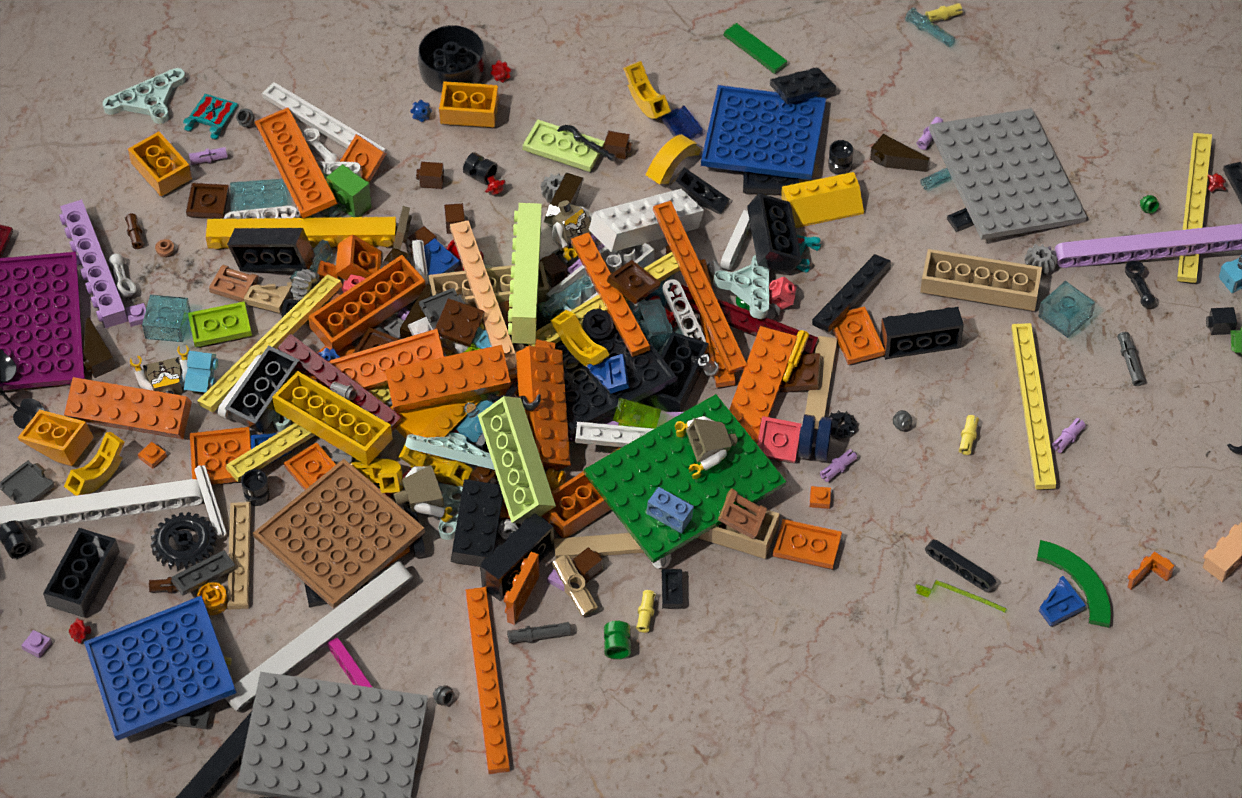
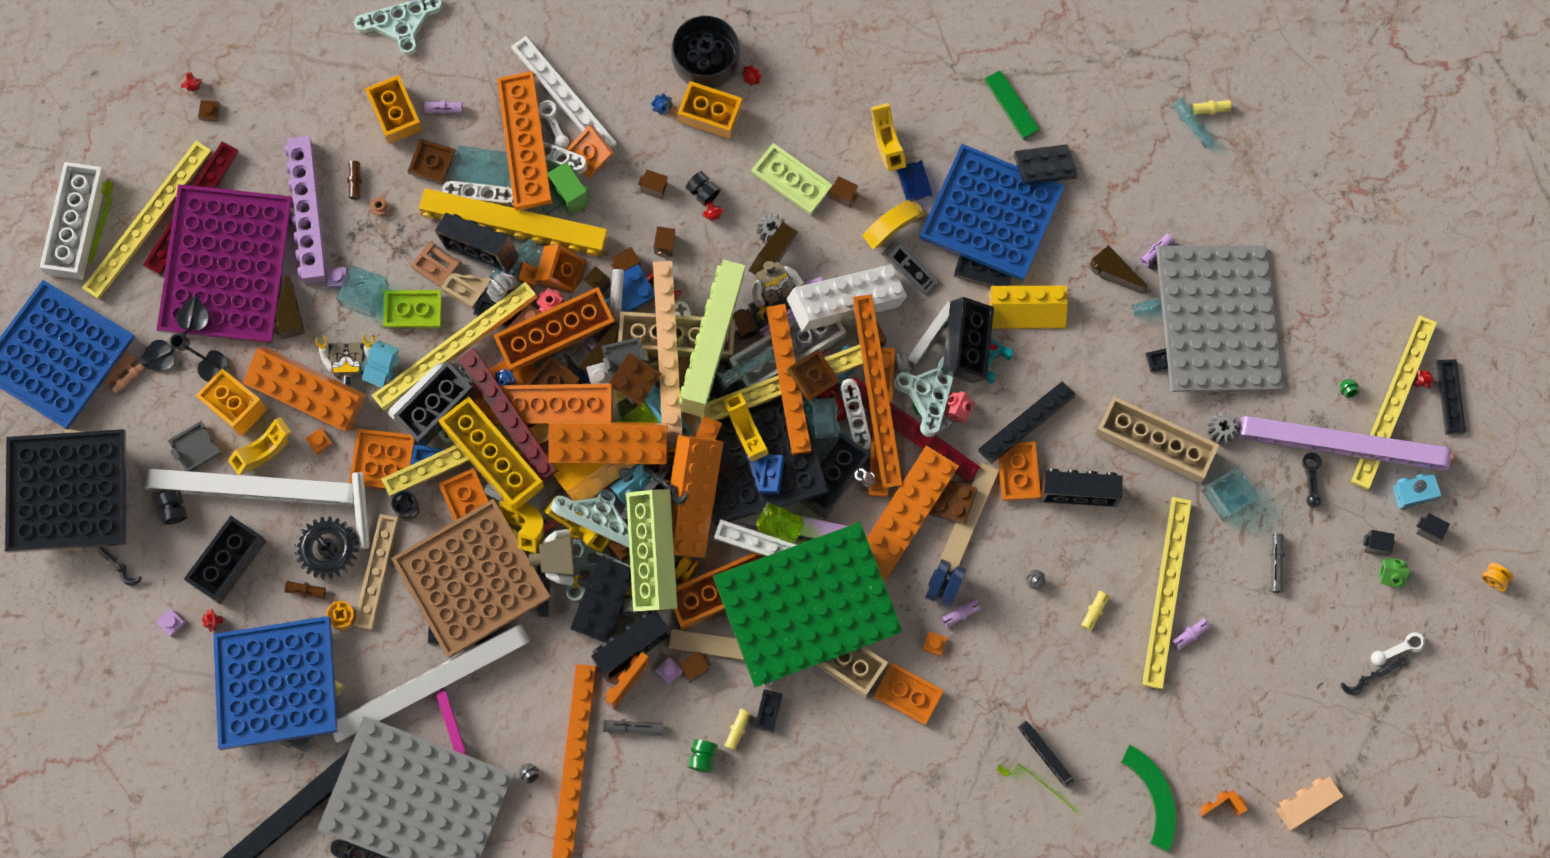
camera: 10 degrees right, 20 degrees up
(116, 262) = (330, 213): white piece -> none
(203, 573) = (336, 589): dark grey plate -> none
(211, 112) = (459, 55): teal flag -> none
(245, 117) = (488, 71): dark grey plate -> none
(347, 392) = (511, 433): light grey pin -> none
(403, 228) = (610, 244): dark tan plate -> none
(580, 596) = (681, 700): tan piece -> none
(592, 145) = (807, 176): black piece -> none
(598, 315) = (776, 414): black gear -> none
(669, 510) = (781, 645): medium blue brick -> none
(708, 441) = (837, 579): dark tan torso -> none
(739, 518) = (846, 665): nougat plate -> none
(779, 439) = (910, 574): coral plate -> none
(797, 351) = (952, 484): yellow axle -> none
(840, 157) = (1059, 261): black wheel -> none
(847, 429) = (978, 576): black gear -> none
(1061, 603) = (1129, 818): blue wing -> none

